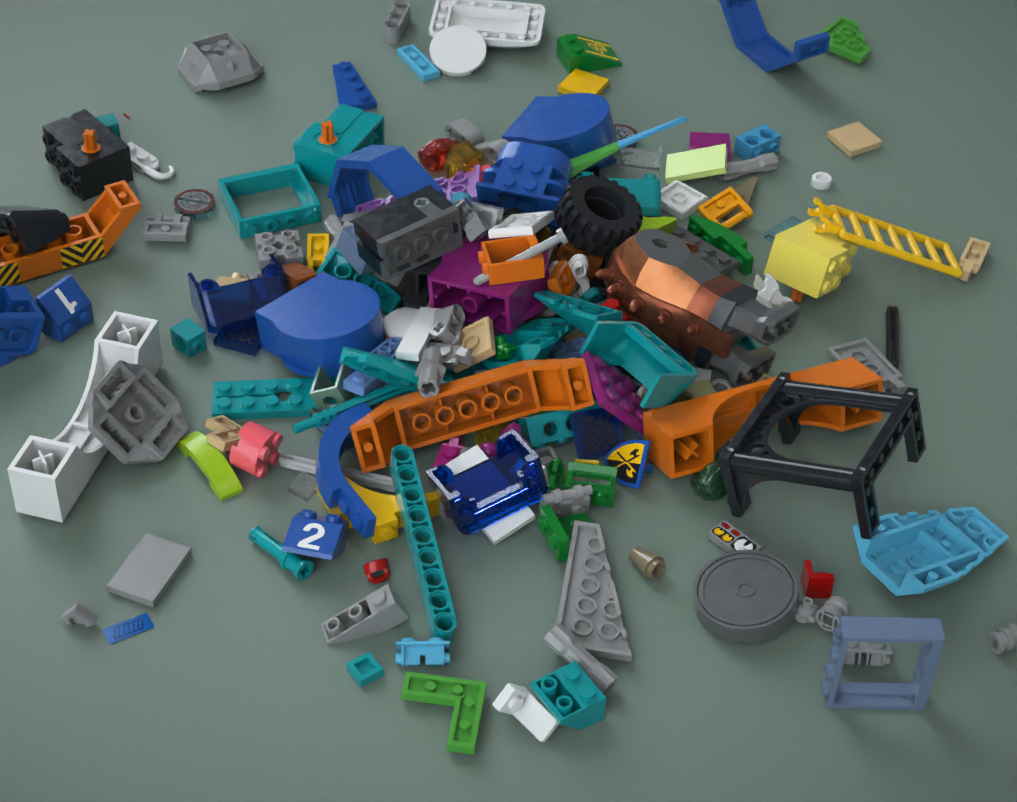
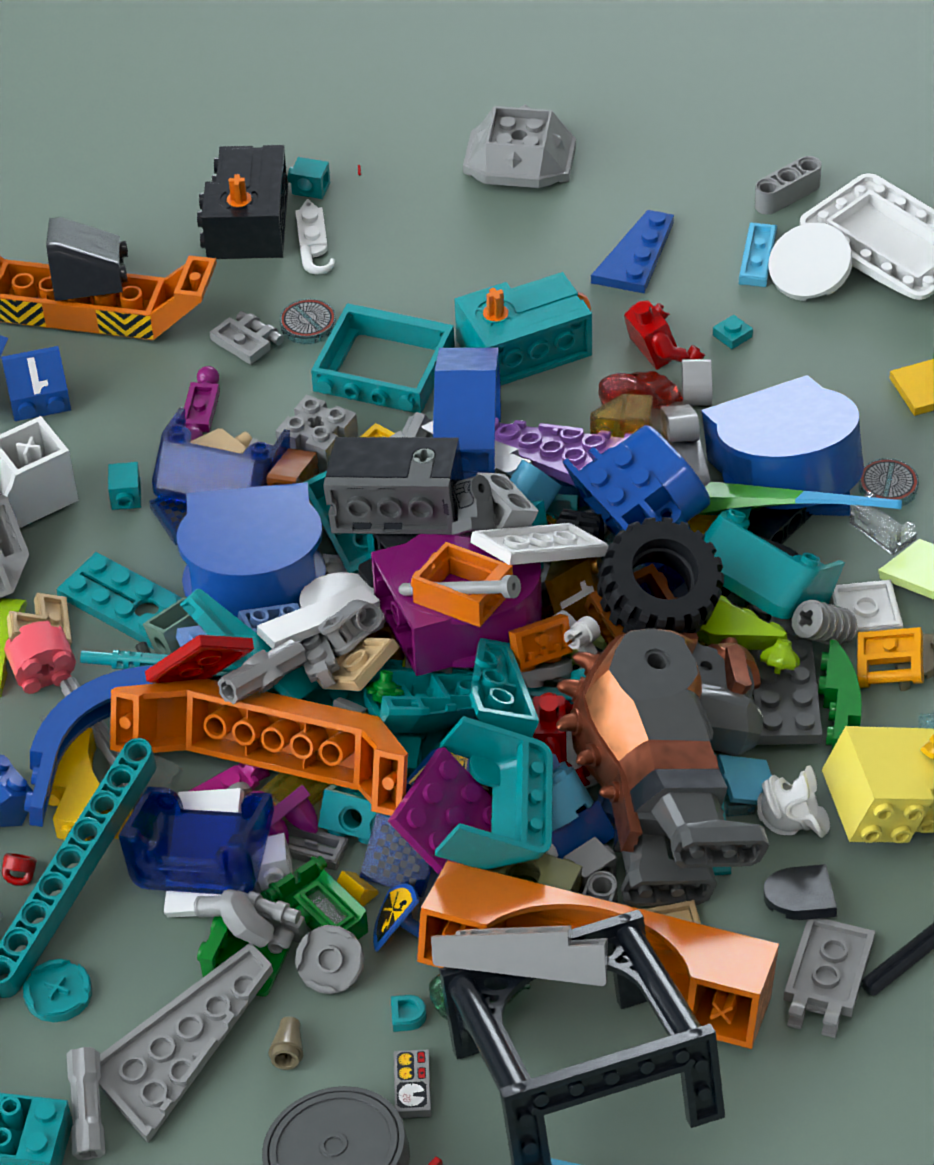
camera: 45 degrees right, 5 degrees up
(177, 270) = (202, 401): none -> magenta plate
(391, 381) = (199, 658): none -> red tile
(416, 119) = (653, 335): none -> red torso
(450, 104) = (732, 331): none -> teal plate
(480, 619) = (57, 990): none -> teal tile
(561, 504) = (243, 920): none -> light grey arm
(621, 506) = (329, 959): none -> light grey tile
(674, 202) = (824, 622): none -> light grey piece
(682, 231) = (780, 656): none -> lime piece
(687, 510) = (407, 1012): none -> teal tile
(758, 419) = (525, 952): none -> light grey wedge
(813, 339) = (801, 893): none -> tile

